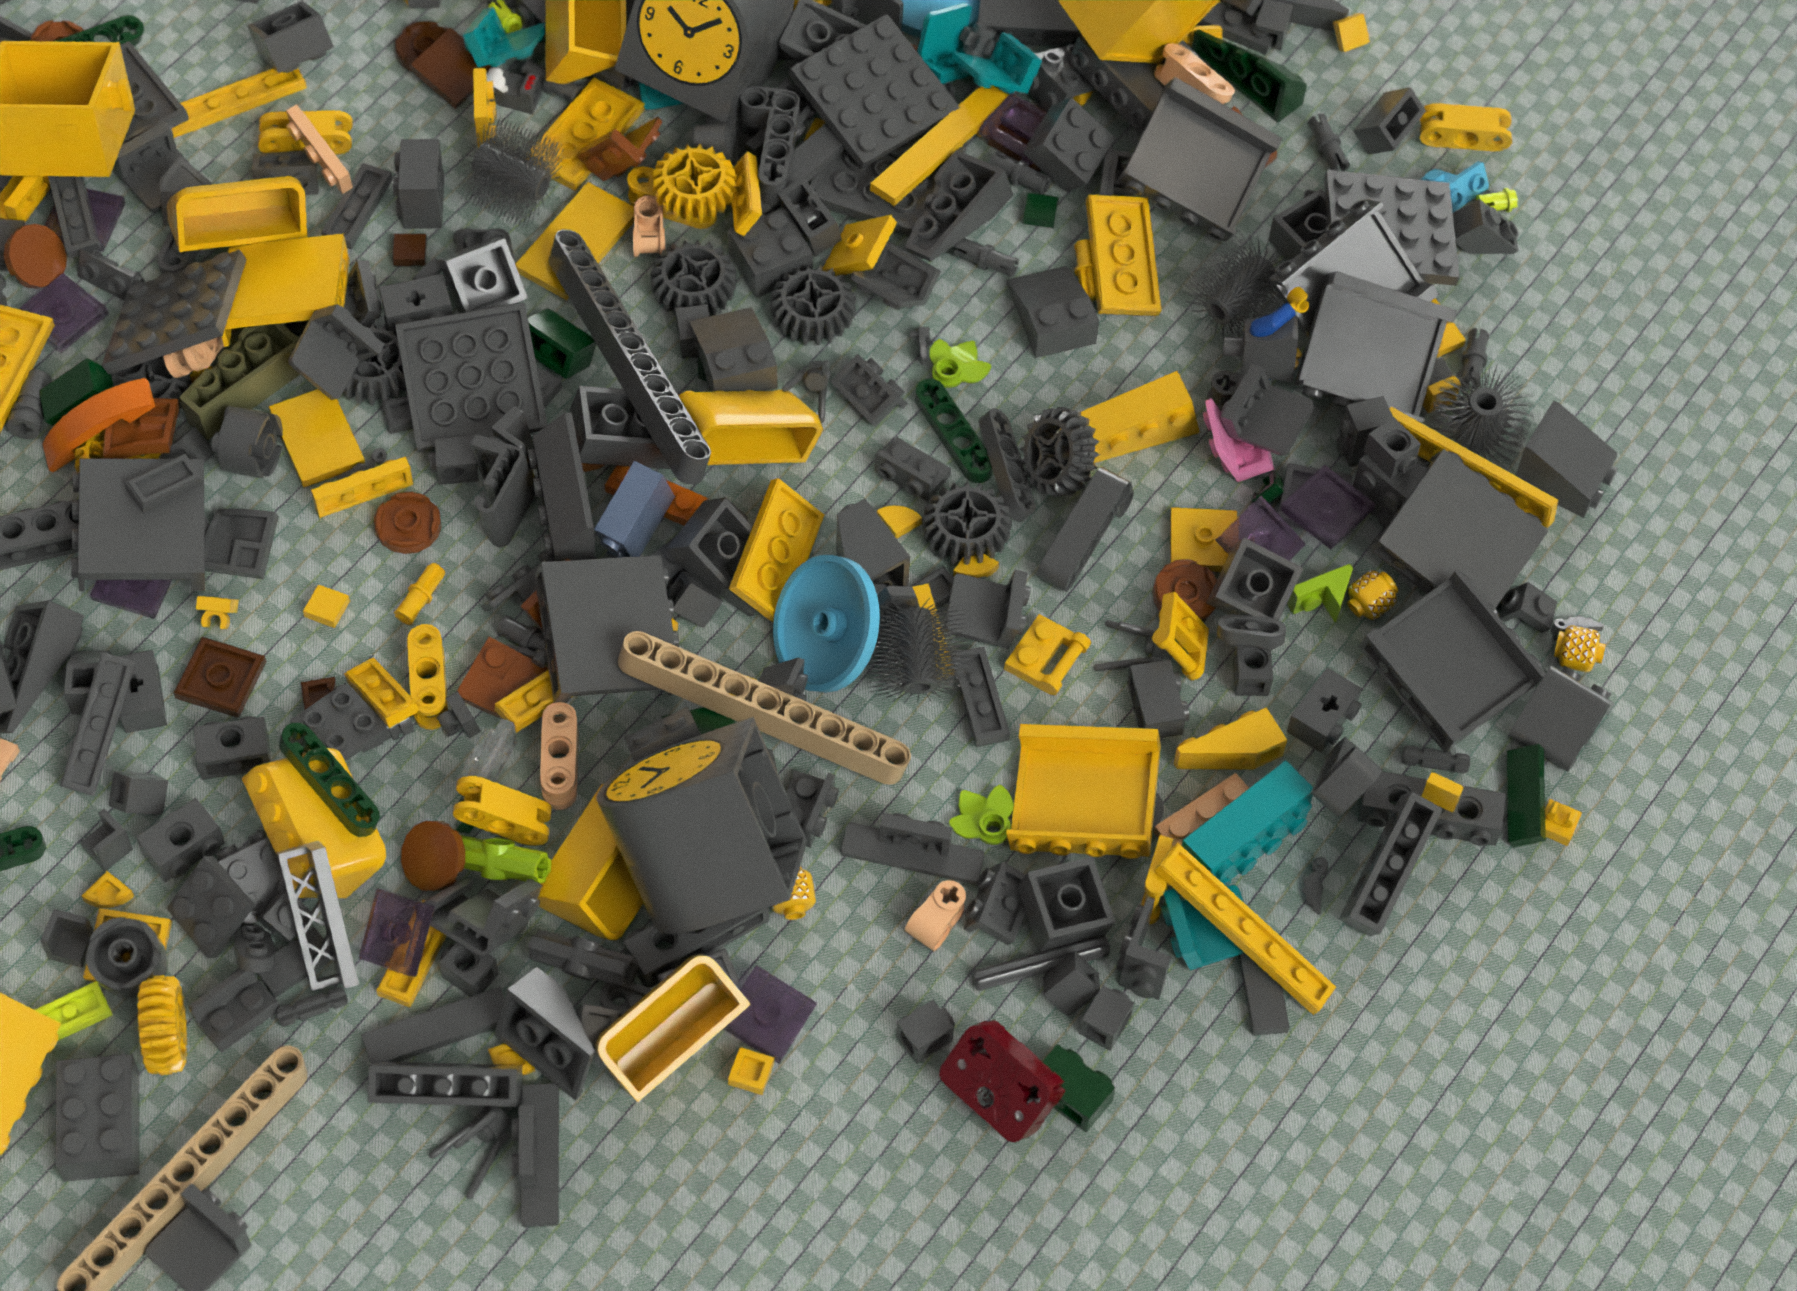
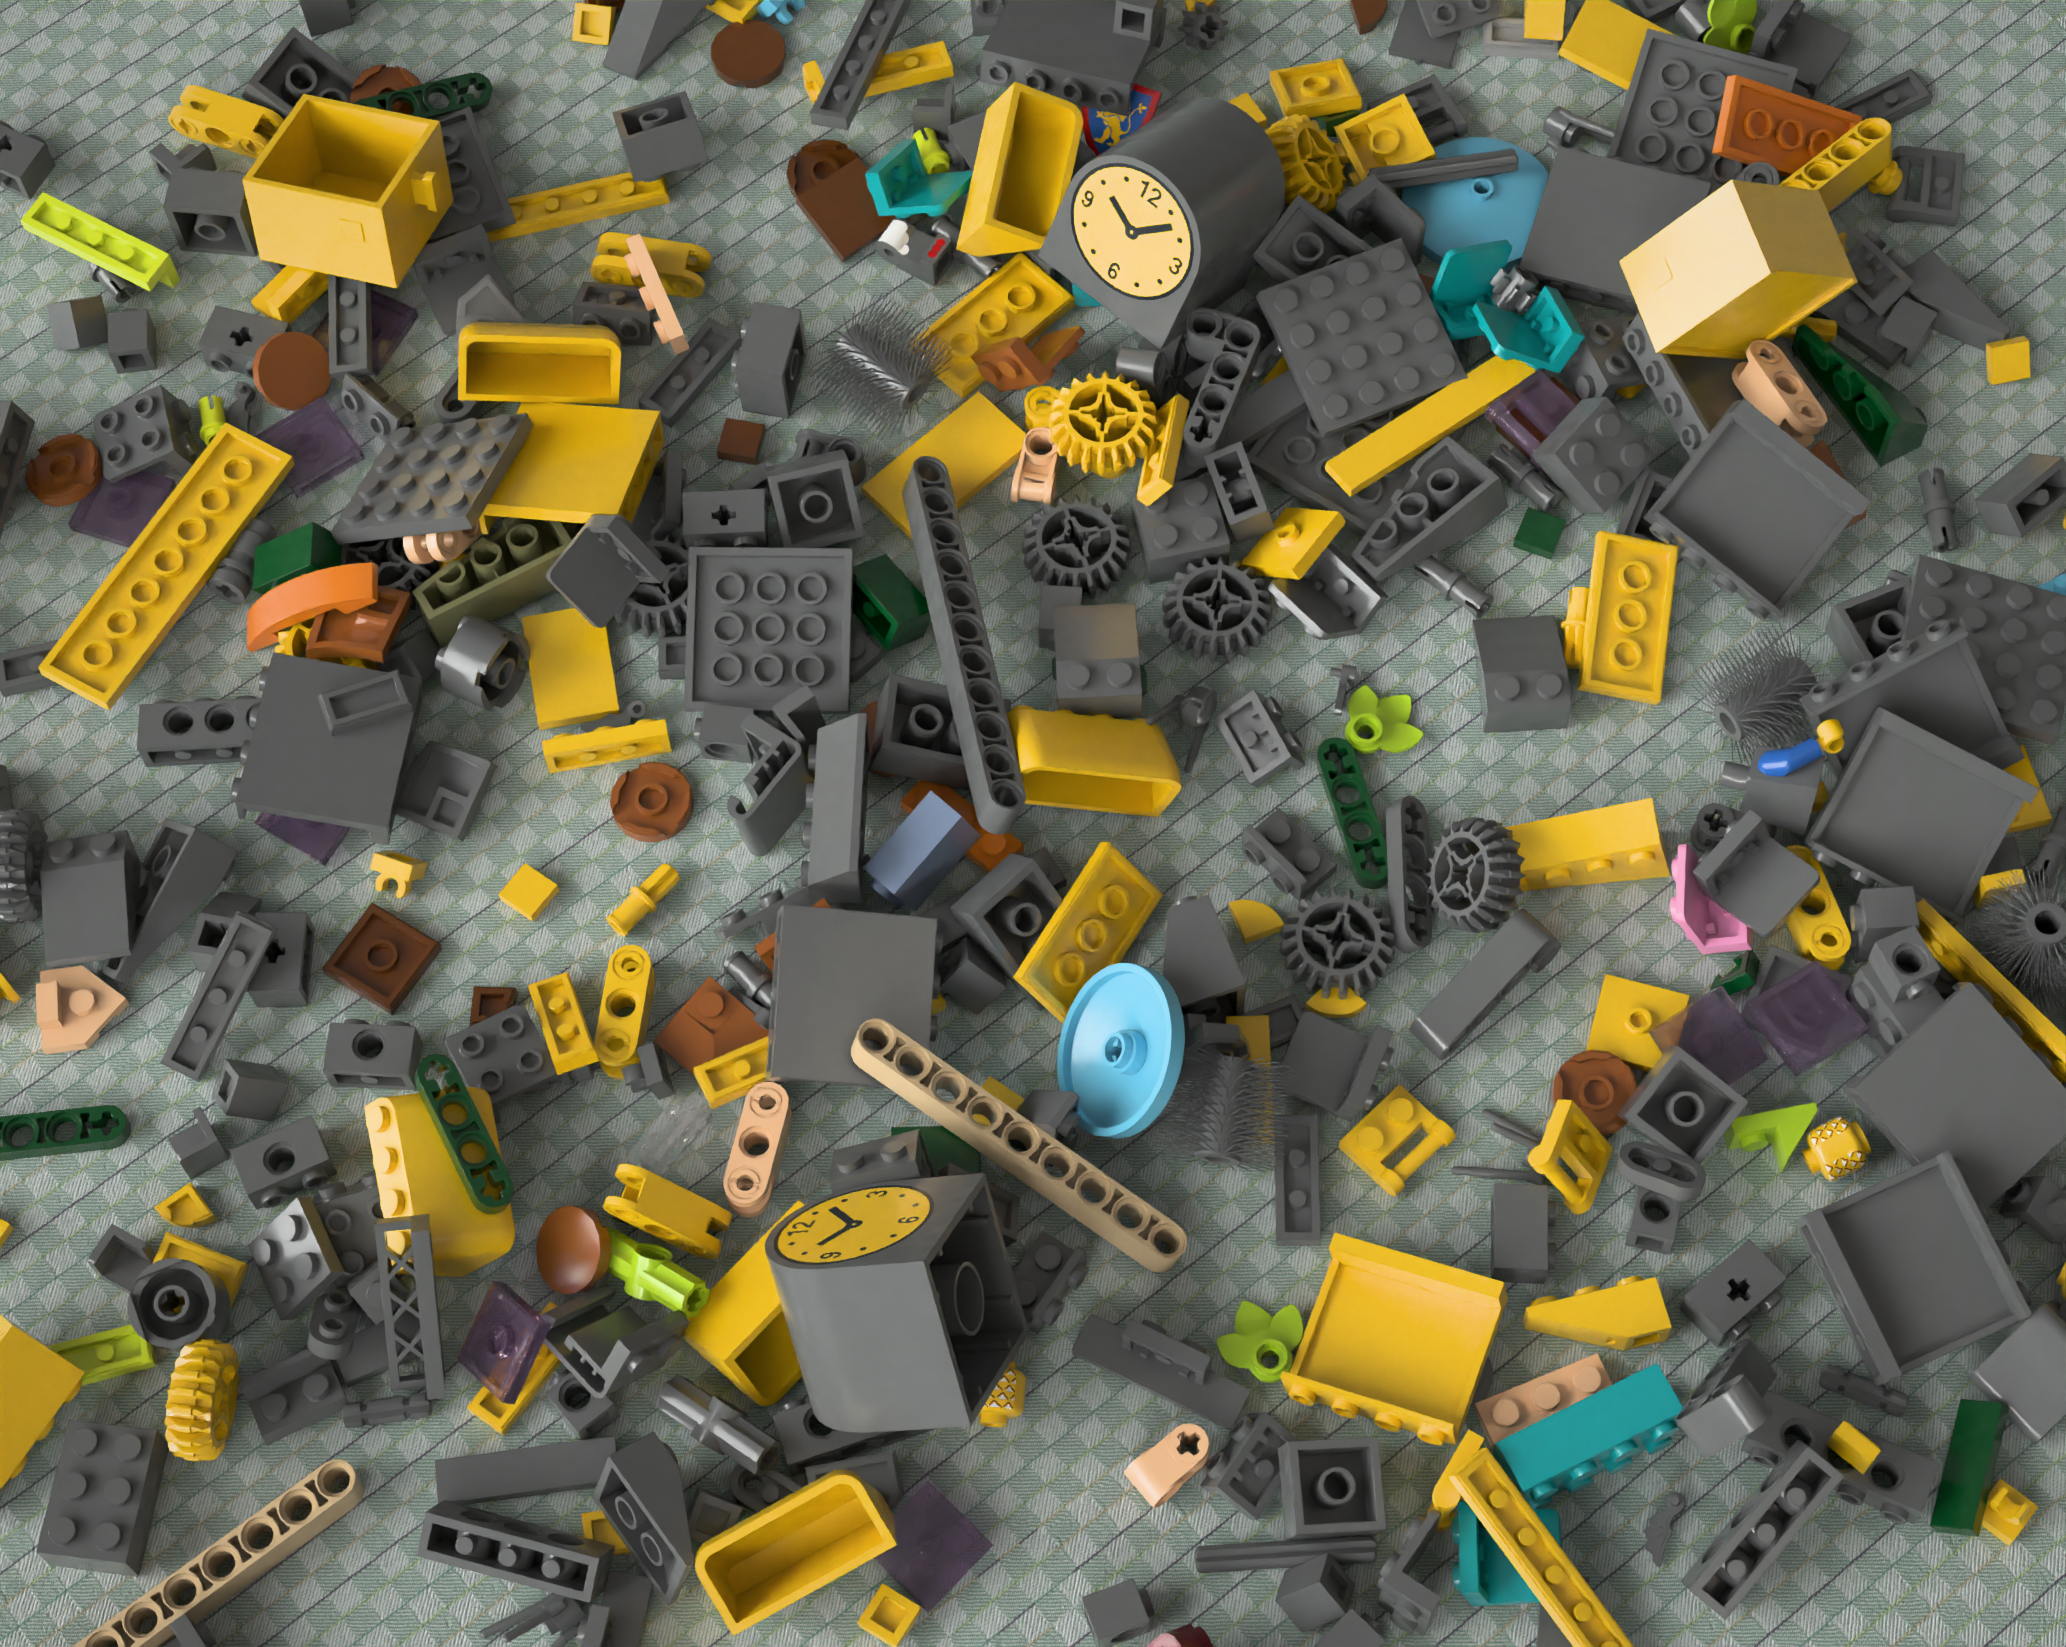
camera: 20 degrees right, 5 degrees up
(483, 107) = (870, 272): yellow plate -> none
(1322, 445) = (1822, 935): none -> yellow piece

